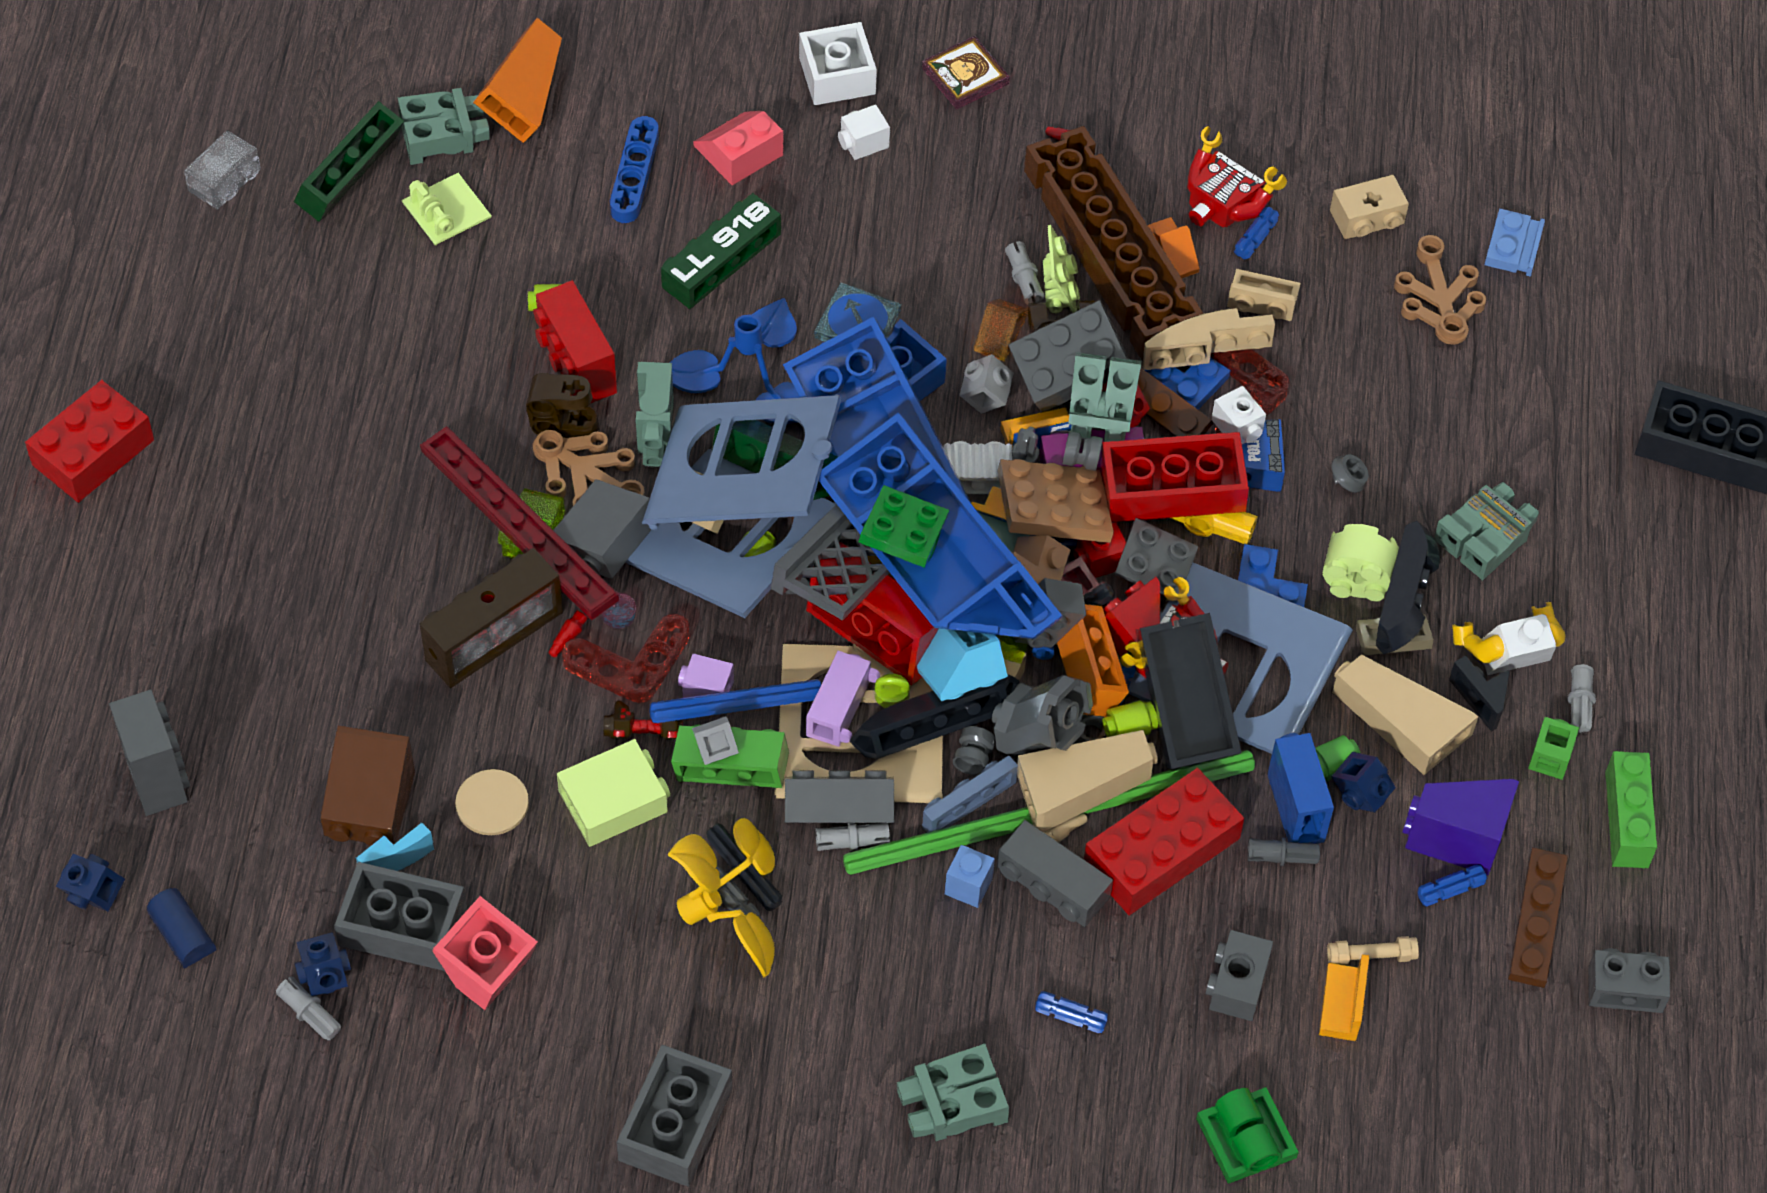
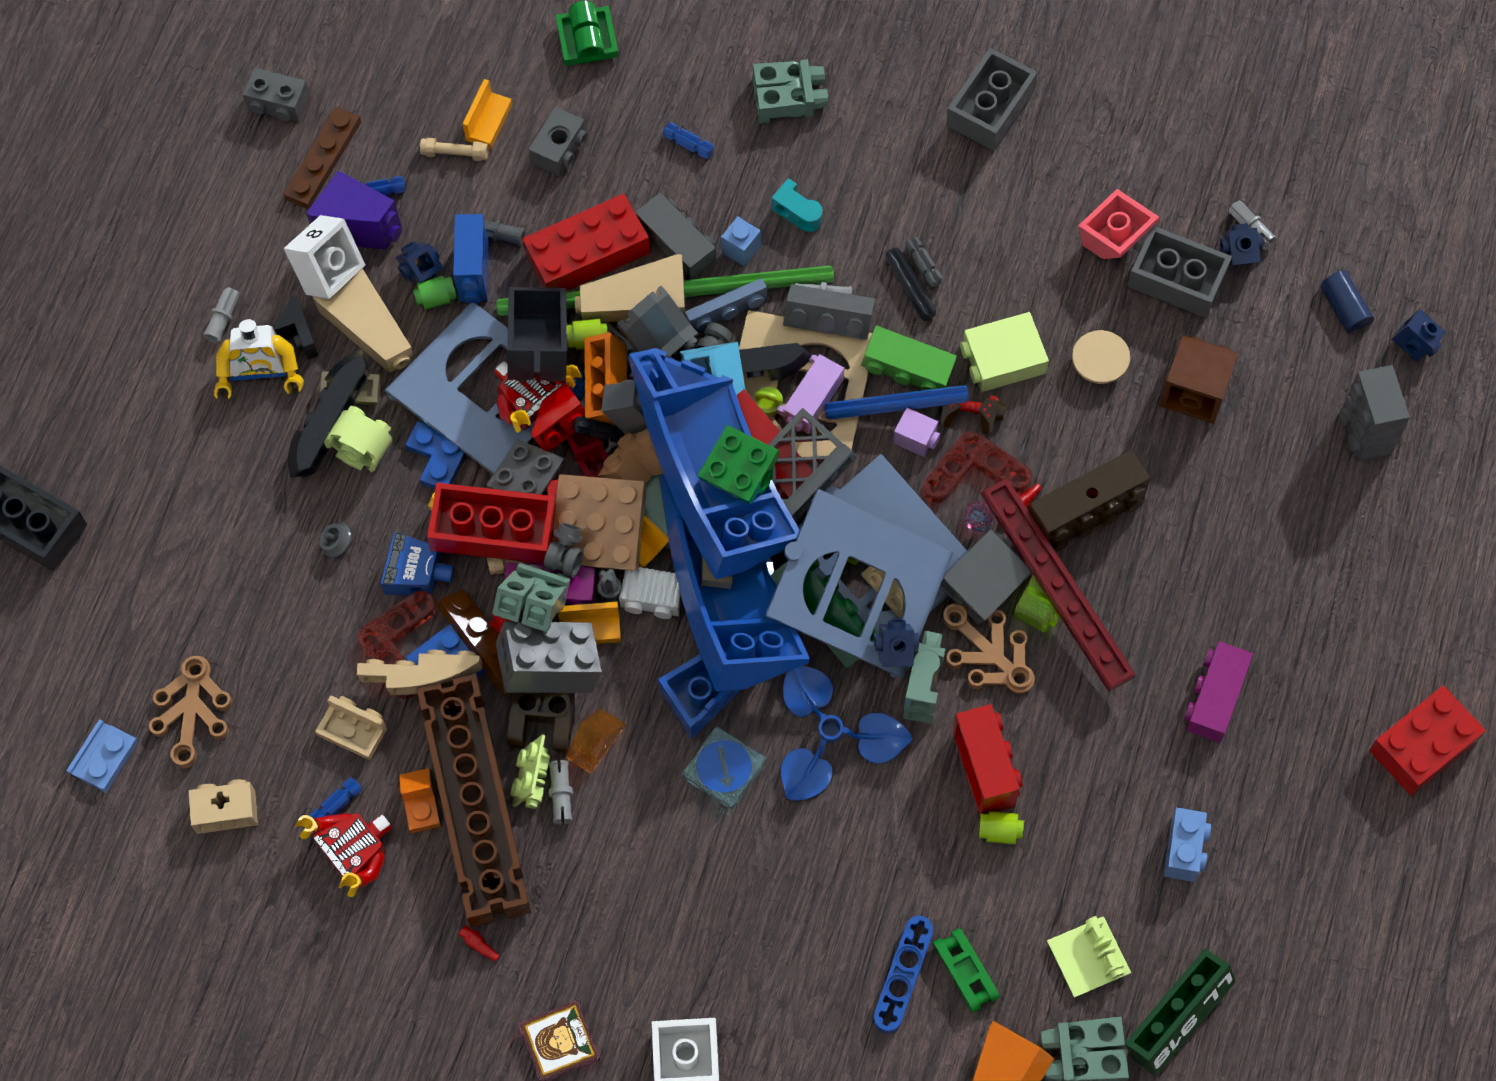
camera: 165 degrees left, 10 degrees up
(222, 169) = (1303, 1024): clear brick -> none
(325, 459) = (1217, 691): none -> magenta brick
(352, 308) = (1185, 844): none -> medium blue brick
(401, 854) = (1184, 325): medium azure slope -> none
(554, 408) = (1014, 701): dark brown piece -> none
(572, 178) = (966, 970): none -> green plate
(690, 405) = (896, 643): none -> dark blue brick
(703, 902) = (952, 227): yellow plant -> none
(715, 740) = (921, 348): light grey tile -> none
(720, 250) = (837, 857): dark green brick -> none
(742, 145) = (798, 984): coral slope -> none
(864, 132) = (676, 974): white brick -> none
(908, 936) = (796, 208): none -> teal leg
(986, 384) = (625, 669): light grey brick -> none
(1083, 475) = (568, 534): none -> dark grey plate
(1239, 413) = (418, 576): white brick -> none
(1477, 739) = (324, 256): none -> white brick
(1486, 529) = (240, 467): sand green hips -> none
(1553, 747) = (260, 267): bright green brick -> none
(1631, 809) = (222, 215): bright green brick -> none

